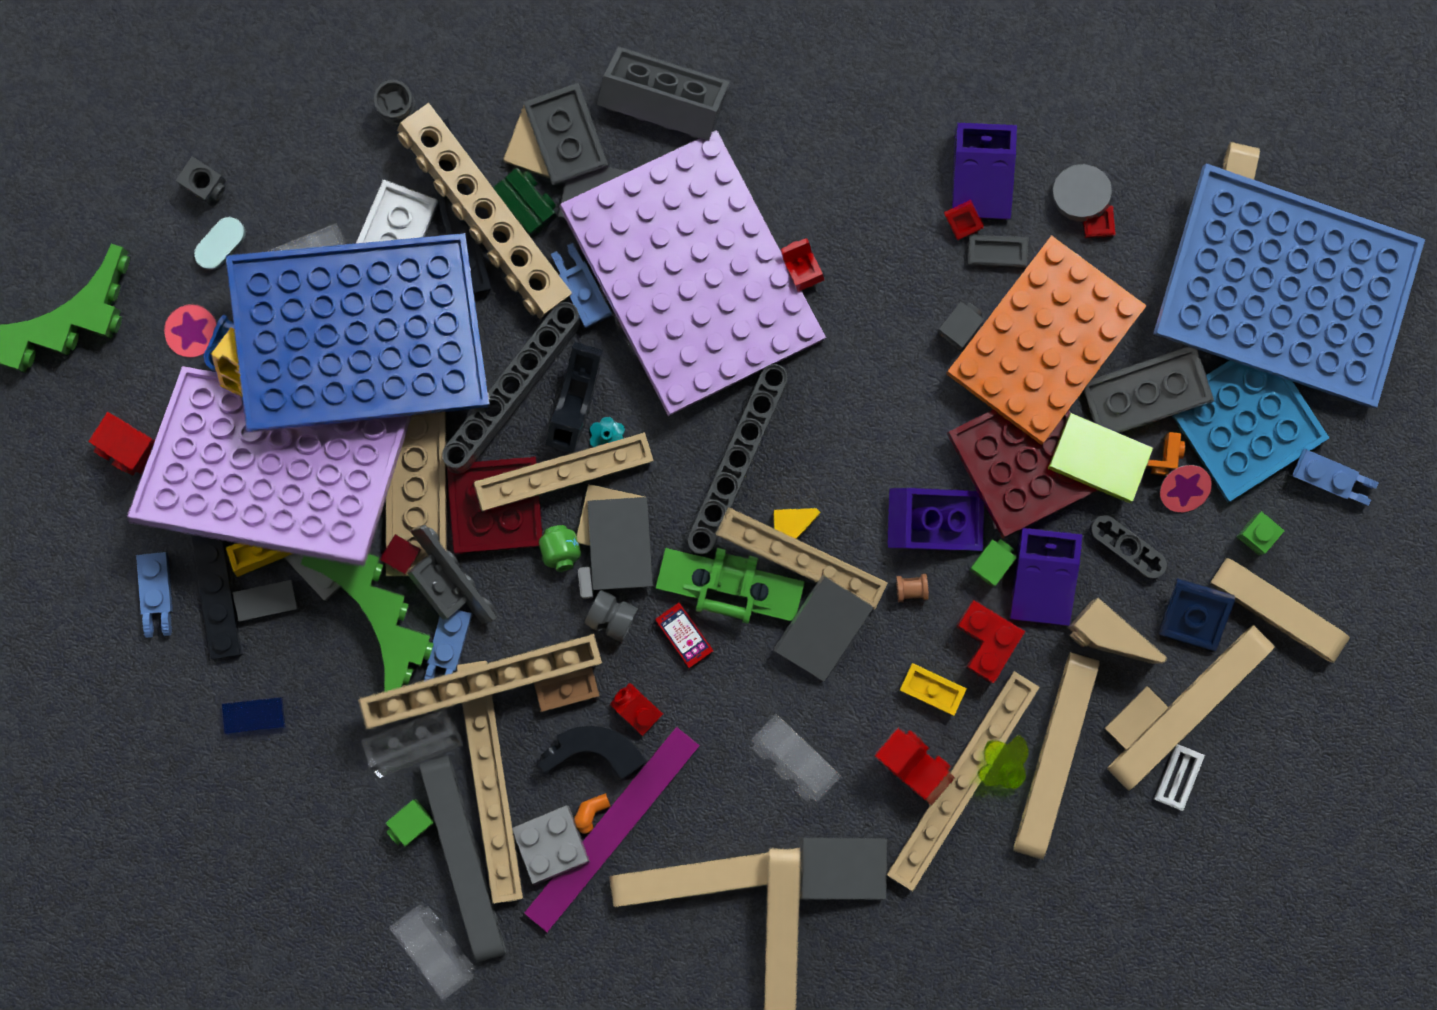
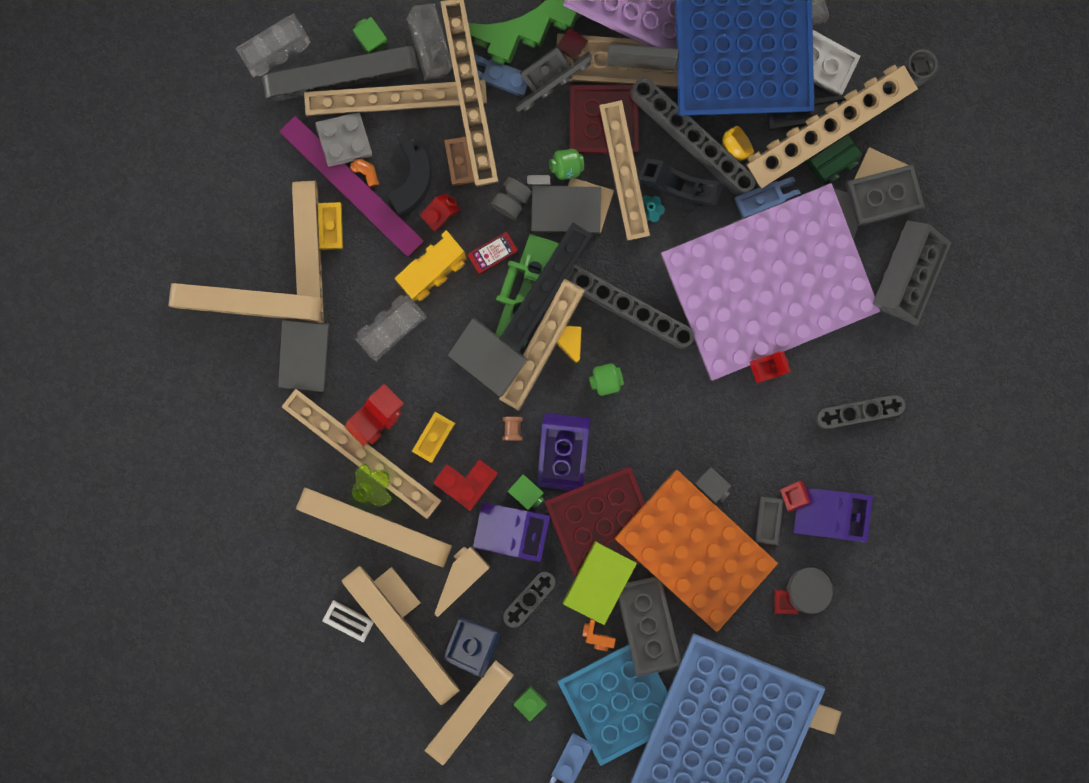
camera: 90 degrees right, 0 degrees up
(415, 460) = (642, 57): none -> dark grey tile
(514, 329) = (737, 143): none -> yellow hair
(667, 851) = (330, 226): none -> yellow plate
(713, 712) = (431, 268): none -> yellow wedge
(728, 559) = (545, 287): none -> black plate
(837, 472) = (606, 379): none -> bright green head
(847, 146) = (860, 412): none -> dark grey beam
(1185, 488) = (570, 648): coral sticker -> none

